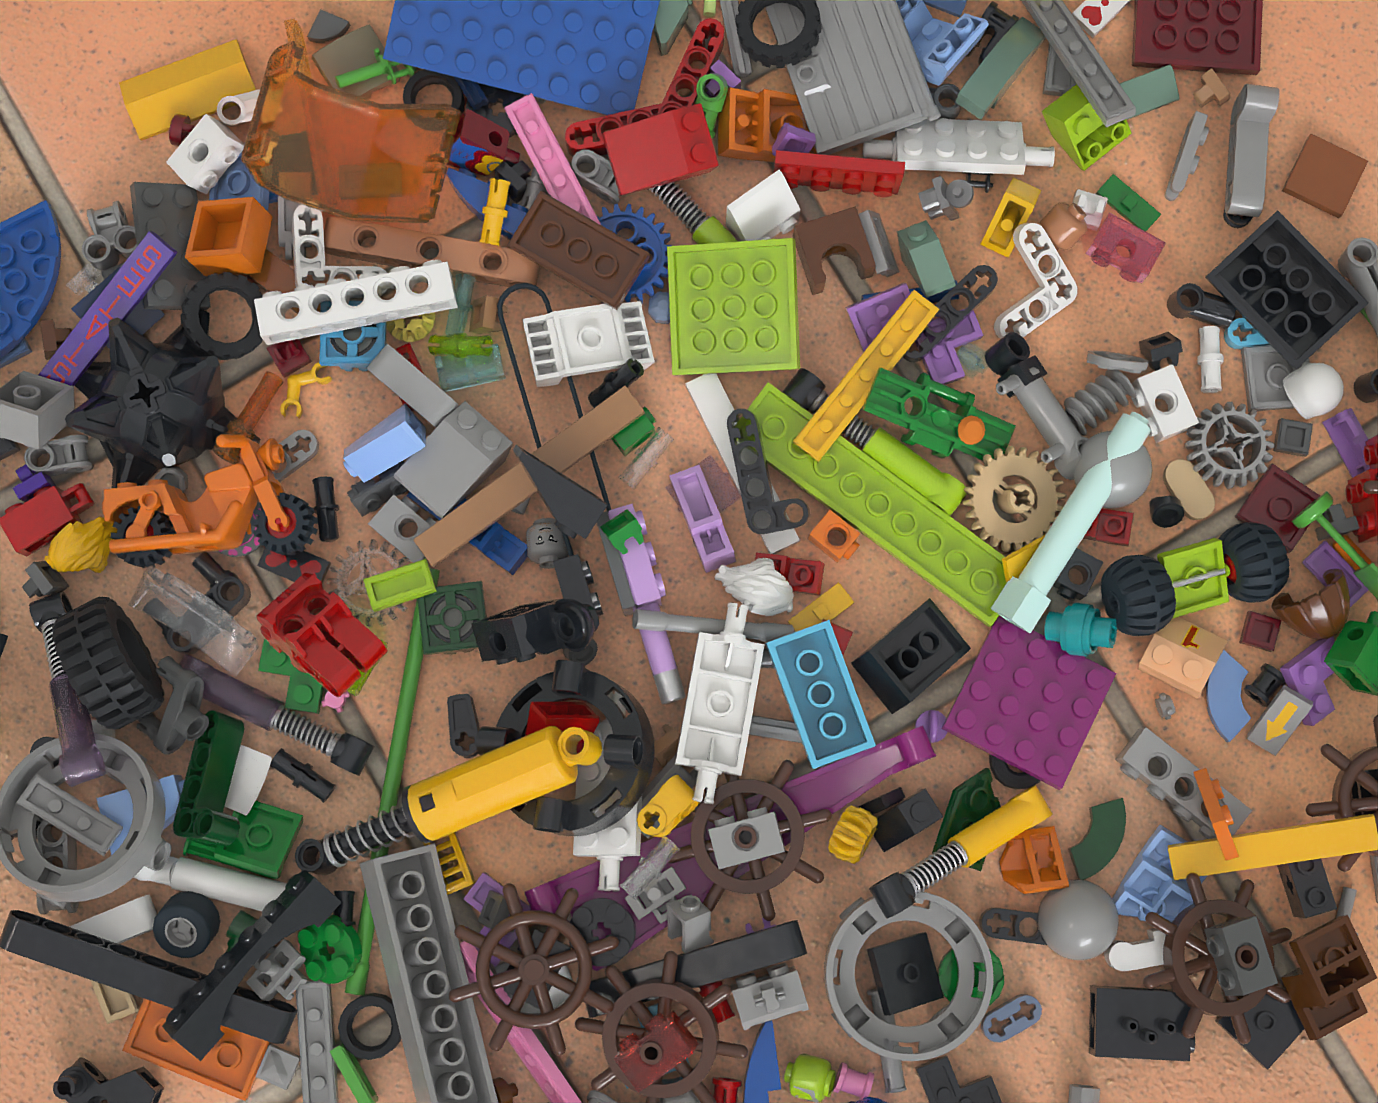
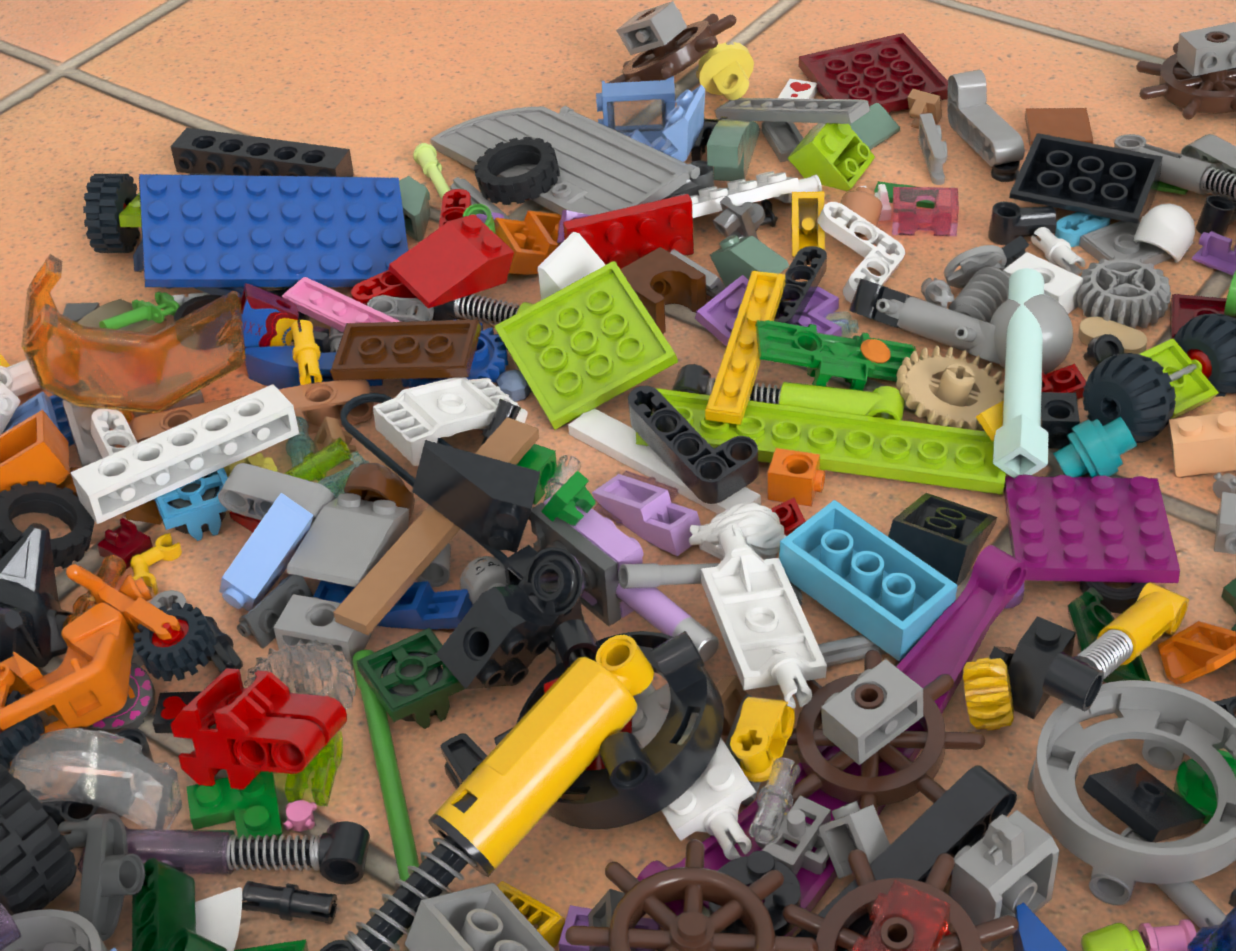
camera: 20 degrees left, 40 degrees down
(400, 585) = (335, 659): lime tile -> none
(499, 411) = (378, 482): none -> reddish brown piece
(1068, 373) = (937, 292): none -> light grey axle
(1293, 437) = (1180, 275): dark grey tile -> none

